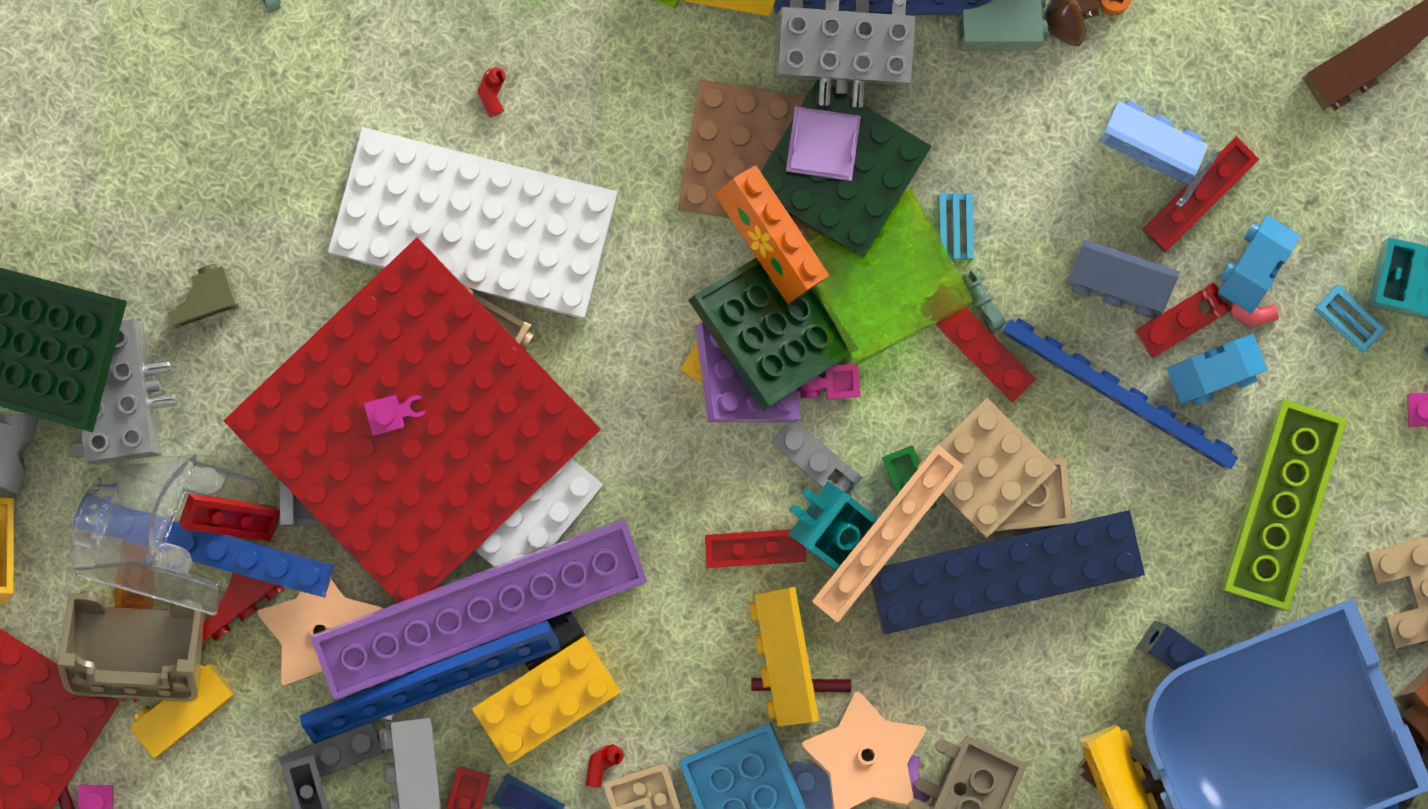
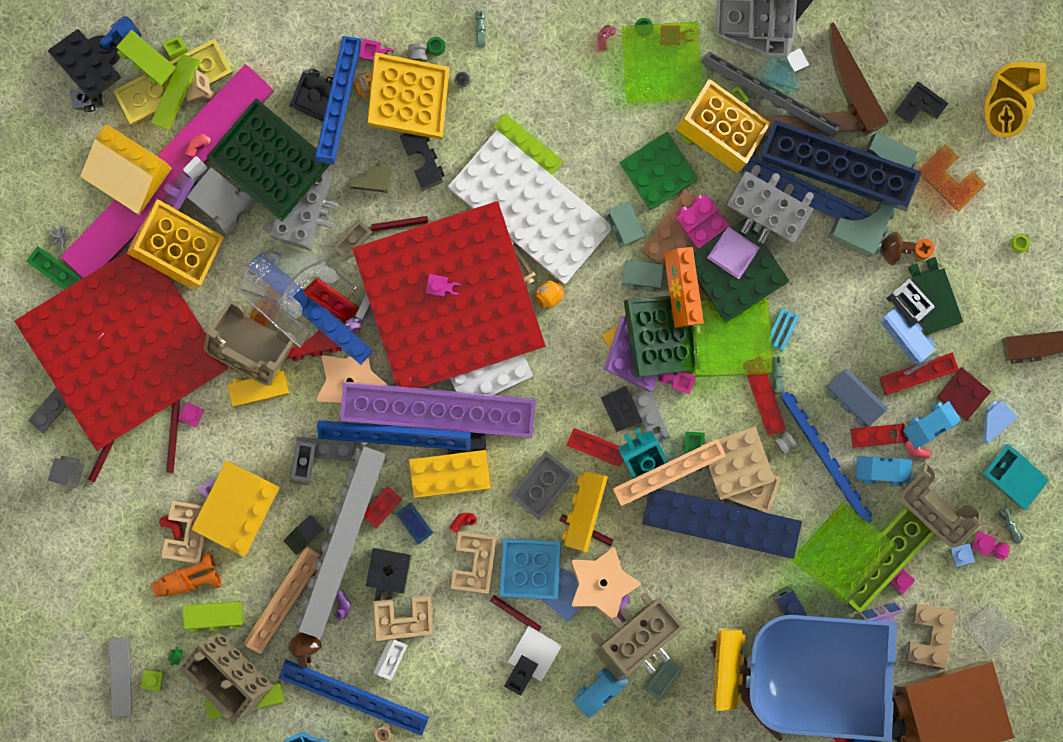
camera: 30 degrees right, 0 degrees up
(50, 206) = (312, 94): none -> black plate
(90, 199) = (338, 100): none -> blue tile
(107, 96) = (370, 47): none -> dark pink plate
(127, 151) = (363, 84): none -> light orange head
(180, 65) = (417, 52): none -> light grey wheel
(197, 140) = (408, 96): none -> yellow plate
(204, 41) = (436, 46): none -> green plate
(218, 402) = (352, 238): none -> dark tan plate
(246, 206) = (429, 173): none -> black arch
(269, 80) = (459, 82): none -> dark grey hinge
(280, 346) = (399, 223): none -> dark red bar
(284, 539) = (353, 325): none -> lavender plate
(422, 125) = (528, 144): none -> lime plate
(489, 89) = (572, 141): red arm -> none
(567, 345) = (549, 294): none -> light orange head
(633, 179) = (624, 224): none -> sand green brick
(646, 71) = (658, 171): none -> green plate
(698, 246) = (642, 275): none -> sand green brick
(699, 648) = (542, 485): none -> dark grey plate
(750, 117) = (701, 221): none -> dark pink plate
(765, 470) = (621, 409): none -> black plate
(1046, 400) = (786, 443): none -> light grey wheel
(1137, 82) = (914, 299): none -> plate
(1166, 65) = (937, 289): none -> dark green tile
(1219, 529) = (844, 553): none -> clear neon green plate
(1284, 191) = (964, 393): none -> dark red plate
(1322, 593) = (882, 613): none -> piece
(1329, 398) = (935, 513): none -> dark tan windscreen
(1329, 529) = (902, 581): none -> dark pink plate
(1343, 330) = (972, 492): medium azure tile -> none
(1354, 208) = (996, 420): none -> light blue slope
(1401, 443) = (962, 555): none -> light blue plate

